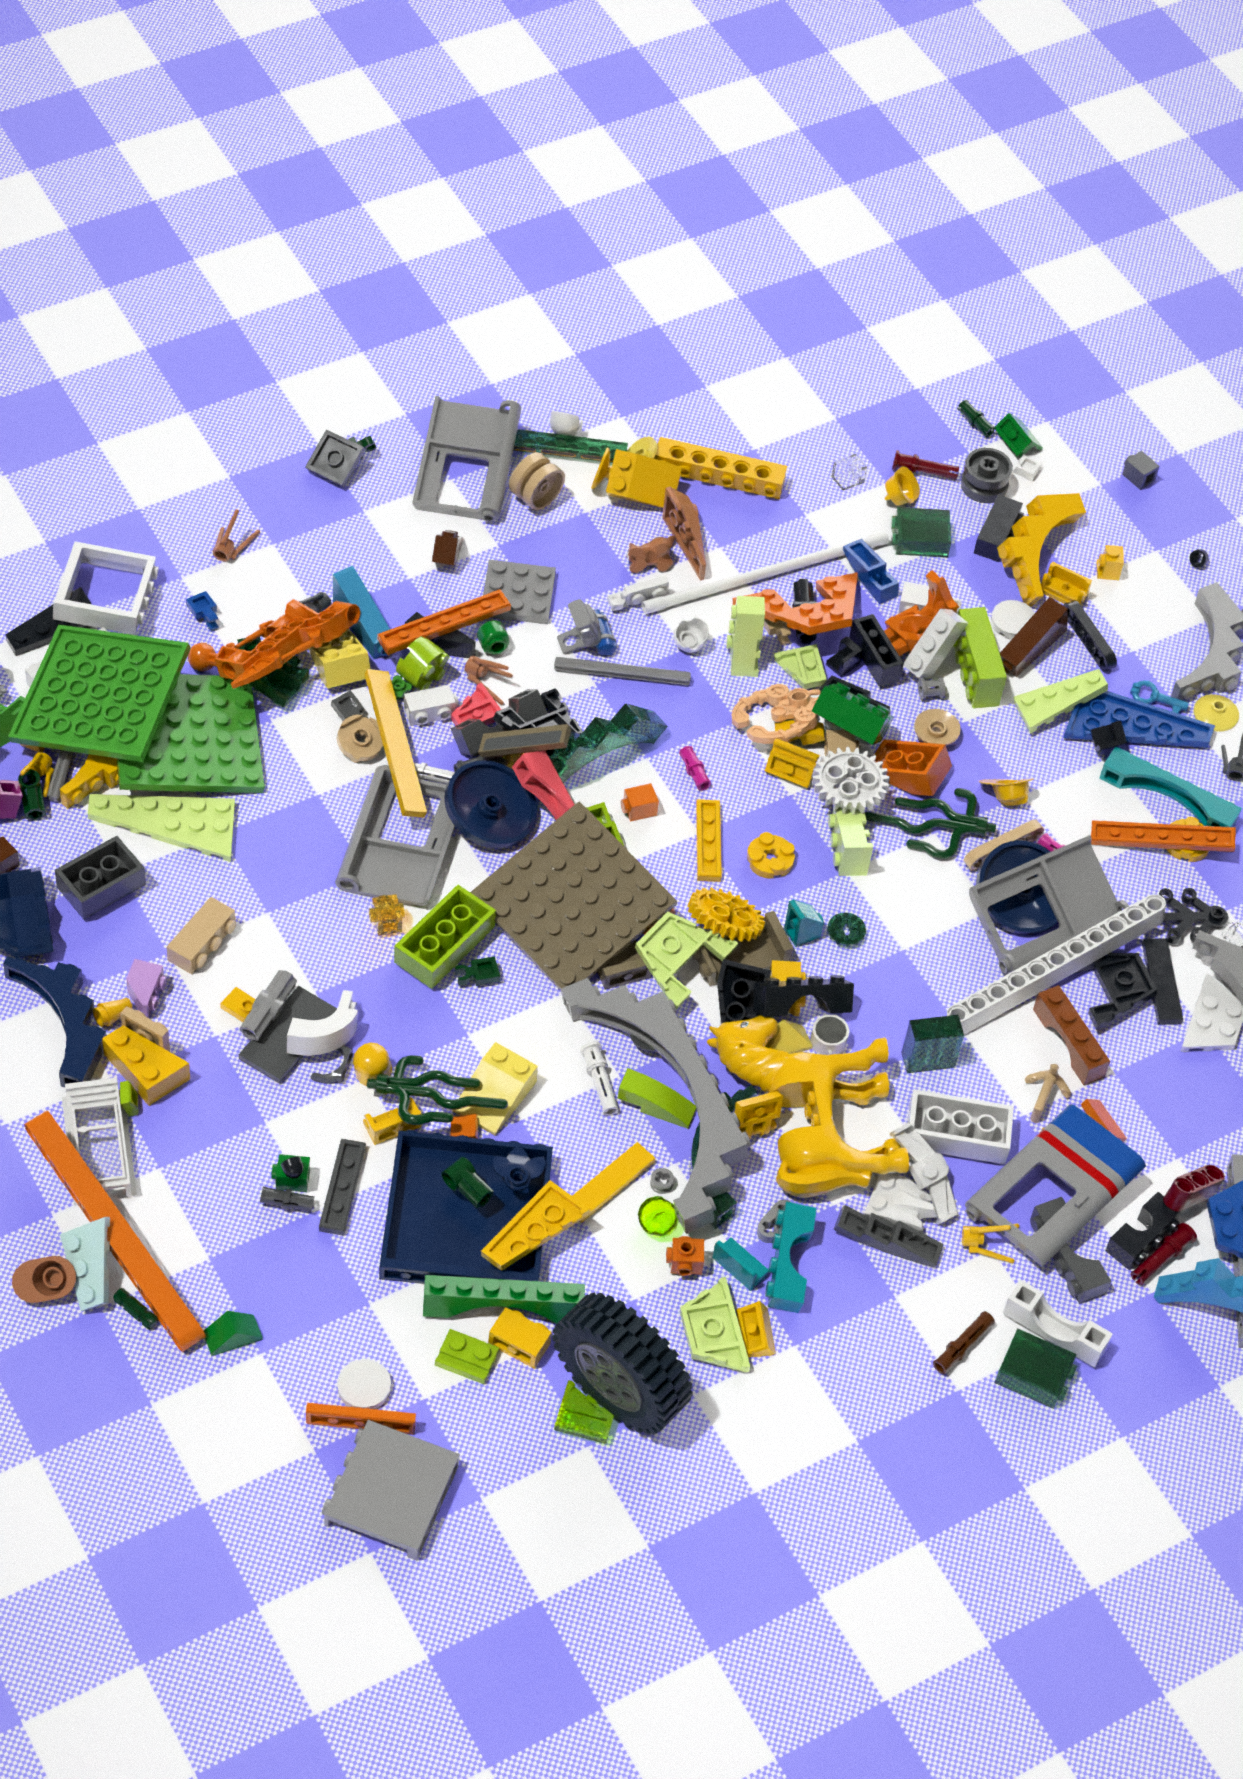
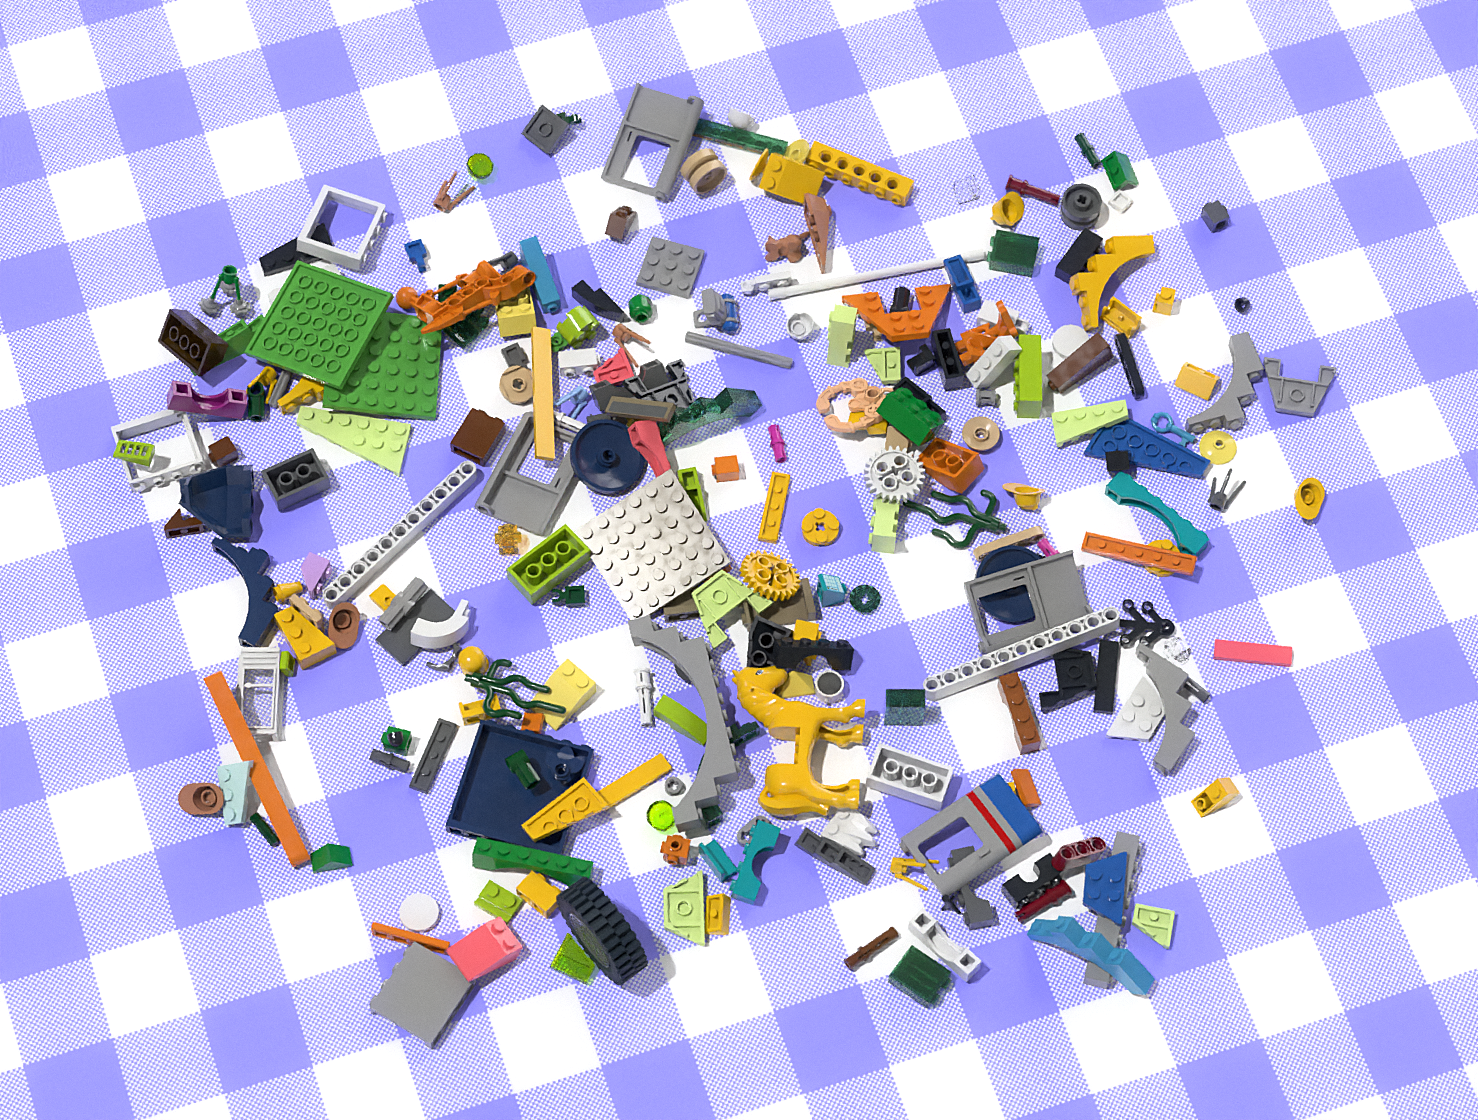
camera: 15 degrees right, 10 degrees up
(196, 1040) = (344, 625): none -> nougat piece
(201, 935) = (363, 536): tan brick -> none
(258, 915) = (399, 542): none -> white beam
(262, 506) = (479, 166): none -> clear neon green hair
(323, 803) = (478, 436): none -> reddish brown brick
(436, 744) = (576, 396): none -> light blue plant
(444, 621) = (602, 291): orange tile -> none
(465, 1416) = (485, 949): none -> coral slope
(758, 1113) = (754, 746): yellow plate -> none
(791, 763) = (853, 450): yellow plate -> none
(928, 1170) = (876, 809): white plate -> none
(1049, 1273) = (948, 903): none -> black bar
(1050, 1078) = (992, 746): tan piece -> none
(1171, 644) = (1196, 380): none -> yellow panel

